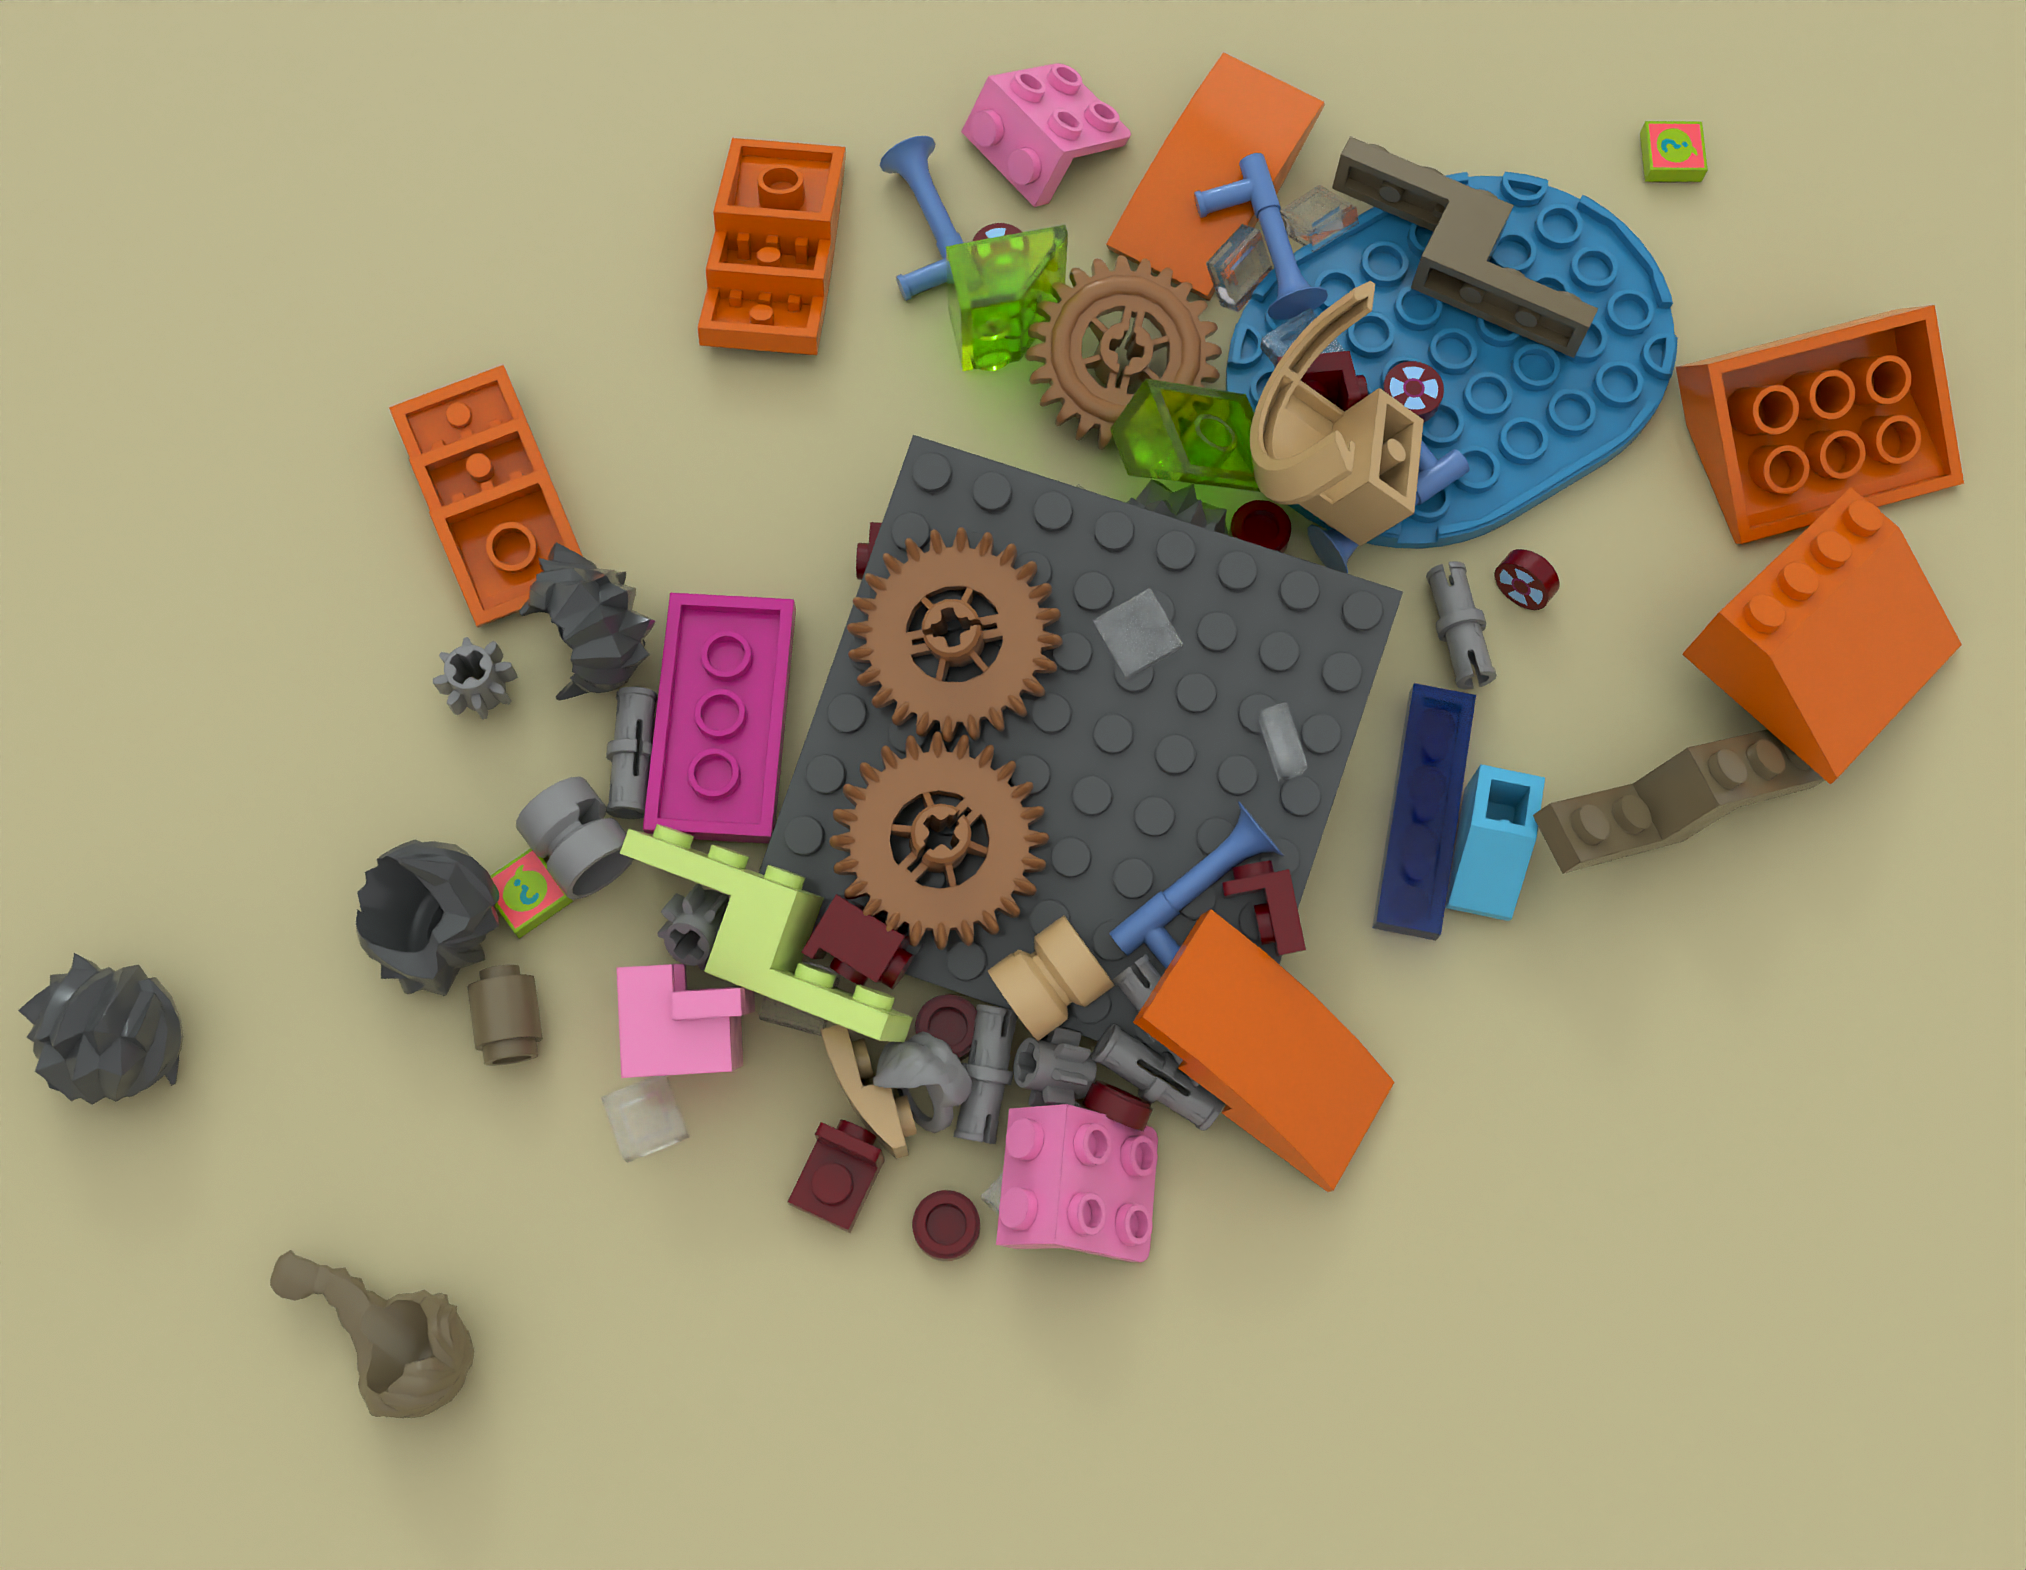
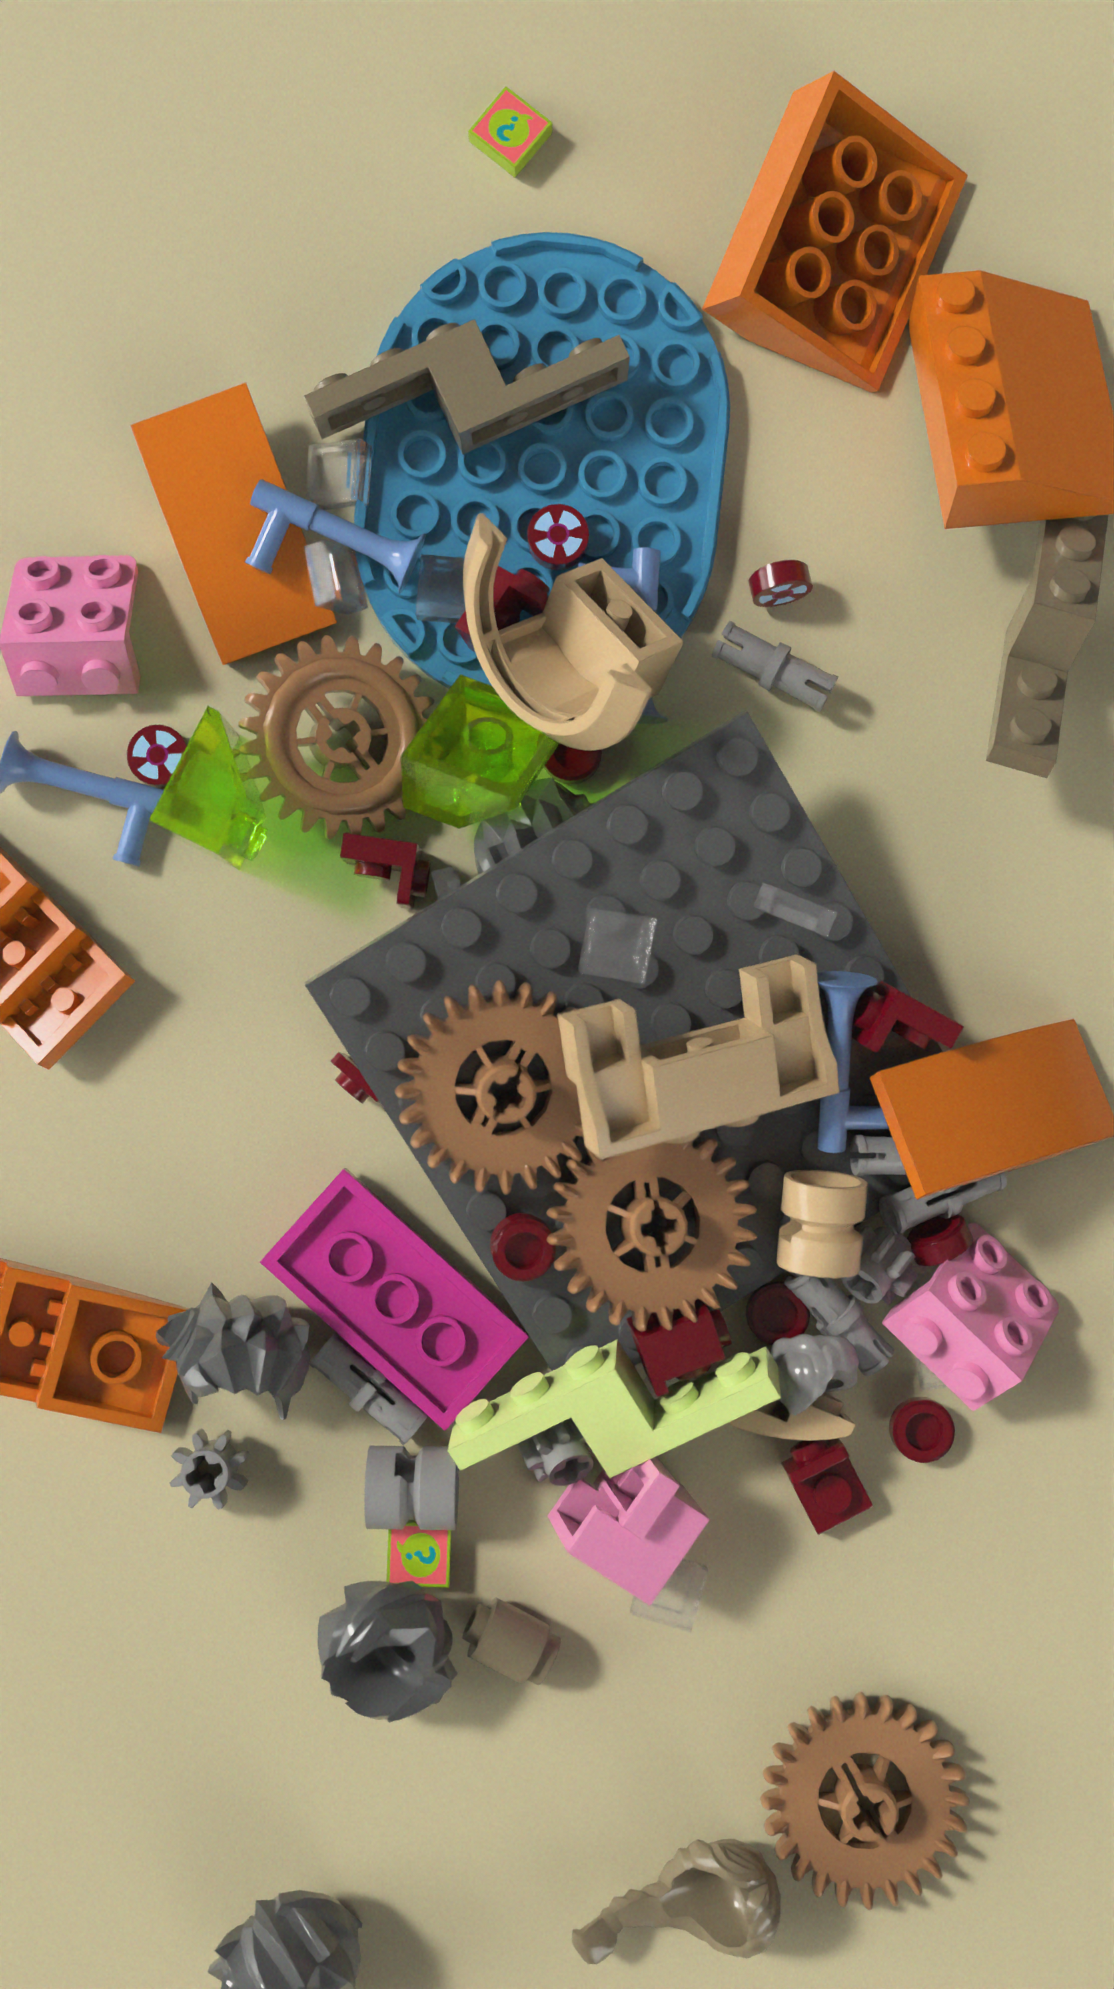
camera: 50 degrees left, 15 degrees up
(559, 1492) = (889, 1854): none -> medium nougat gear
(836, 757) = (521, 1247): none -> dark red tile
(1058, 449) = (379, 856): none -> dark red bracket
(1089, 773) = (705, 1076): none -> tan bracket
(1424, 812) = (896, 822): clear blue plate -> none
(1494, 841) = (967, 796): medium azure slope -> none

